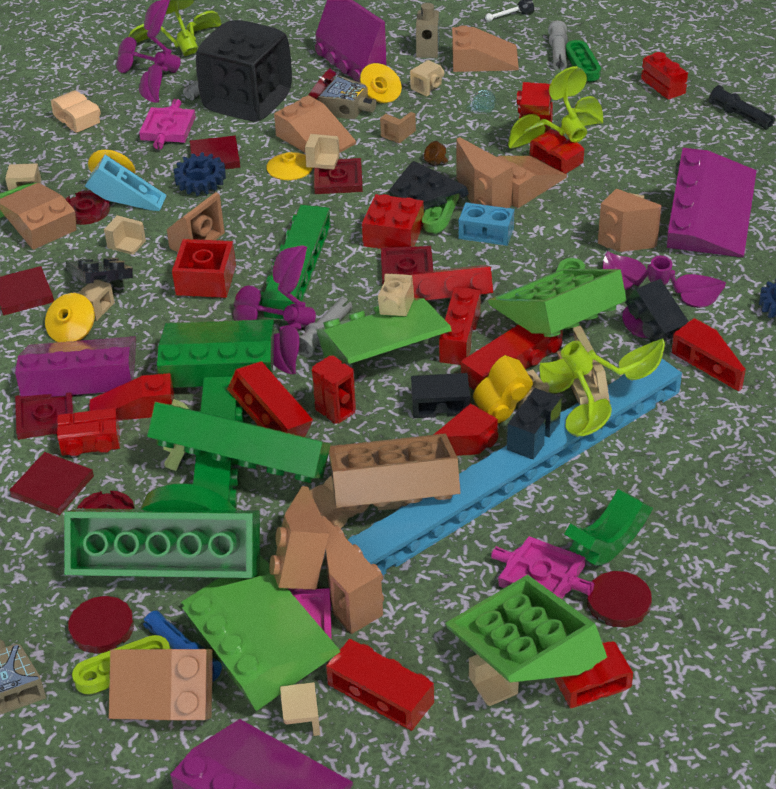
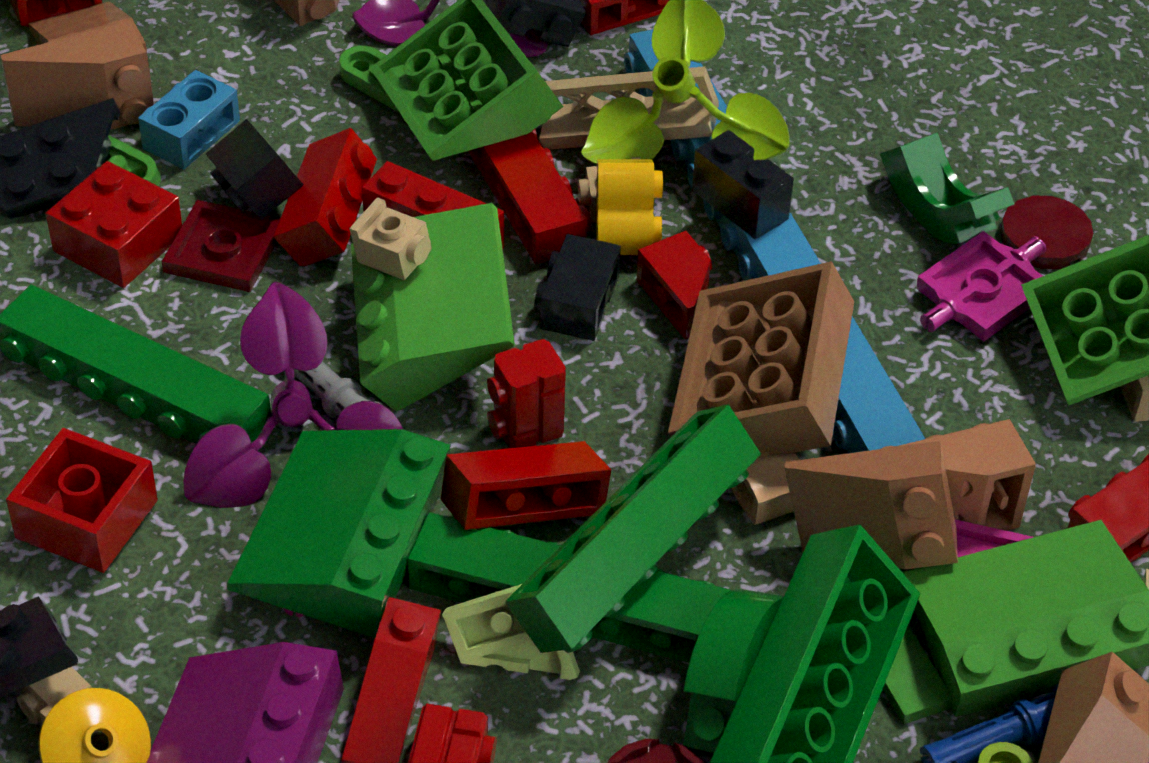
camera: 75 degrees left, 5 degrees up
(451, 250) = (252, 171): none -> black brick

